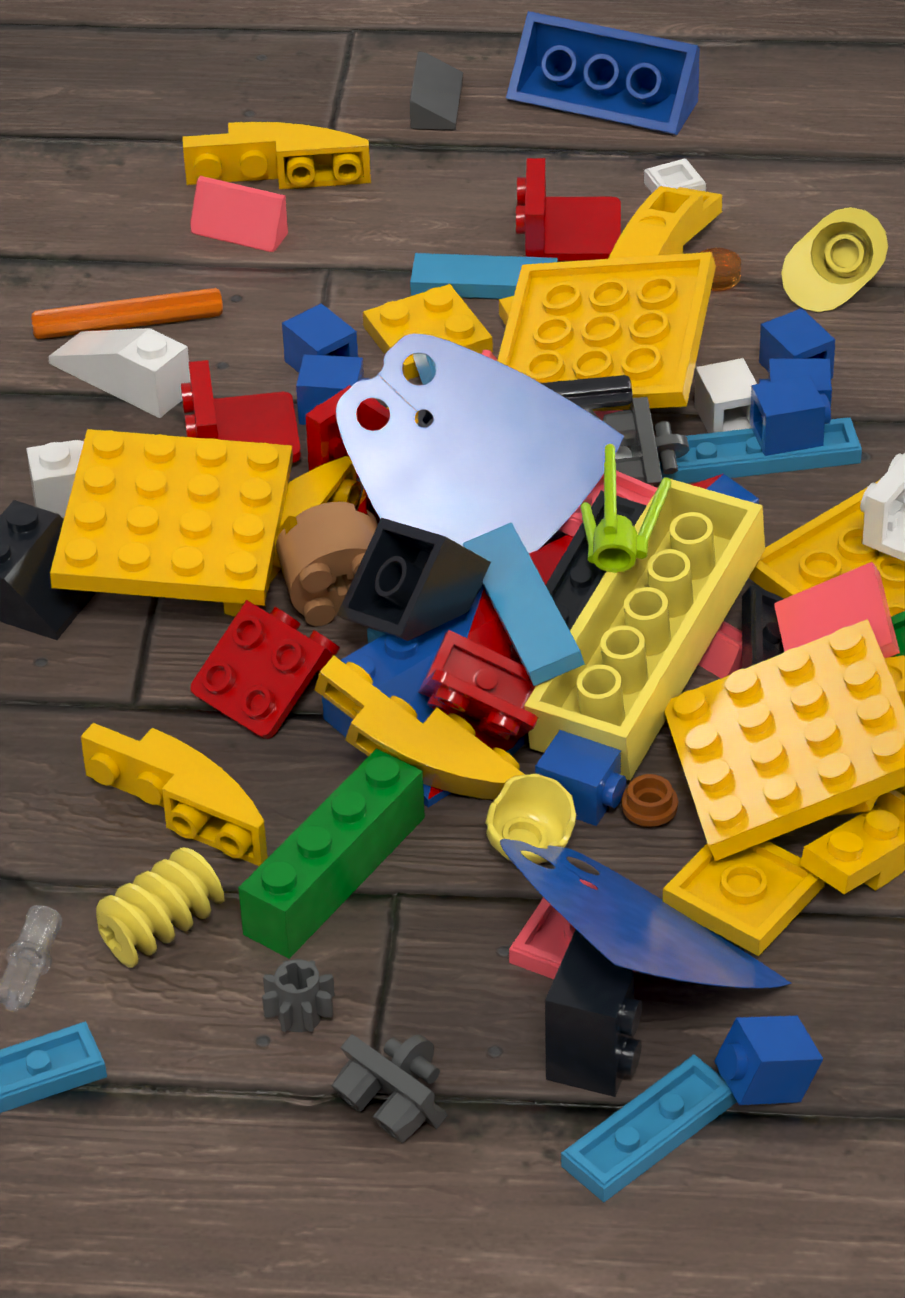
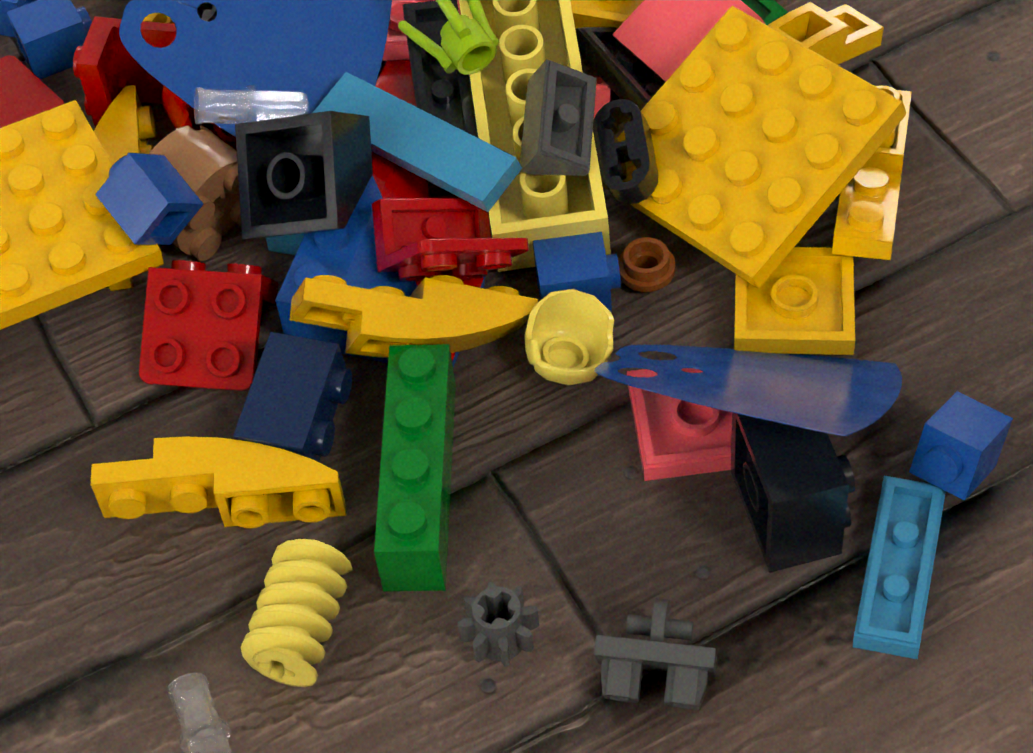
camera: 30 degrees left, 10 degrees up
(277, 544) = (148, 198): none -> blue brick
(282, 755) = (295, 396): none -> dark blue brick
(406, 509) = (246, 105): none -> clear axle
(645, 642) = (558, 121): none -> dark grey slope
(688, 695) = (614, 154): none -> black beam

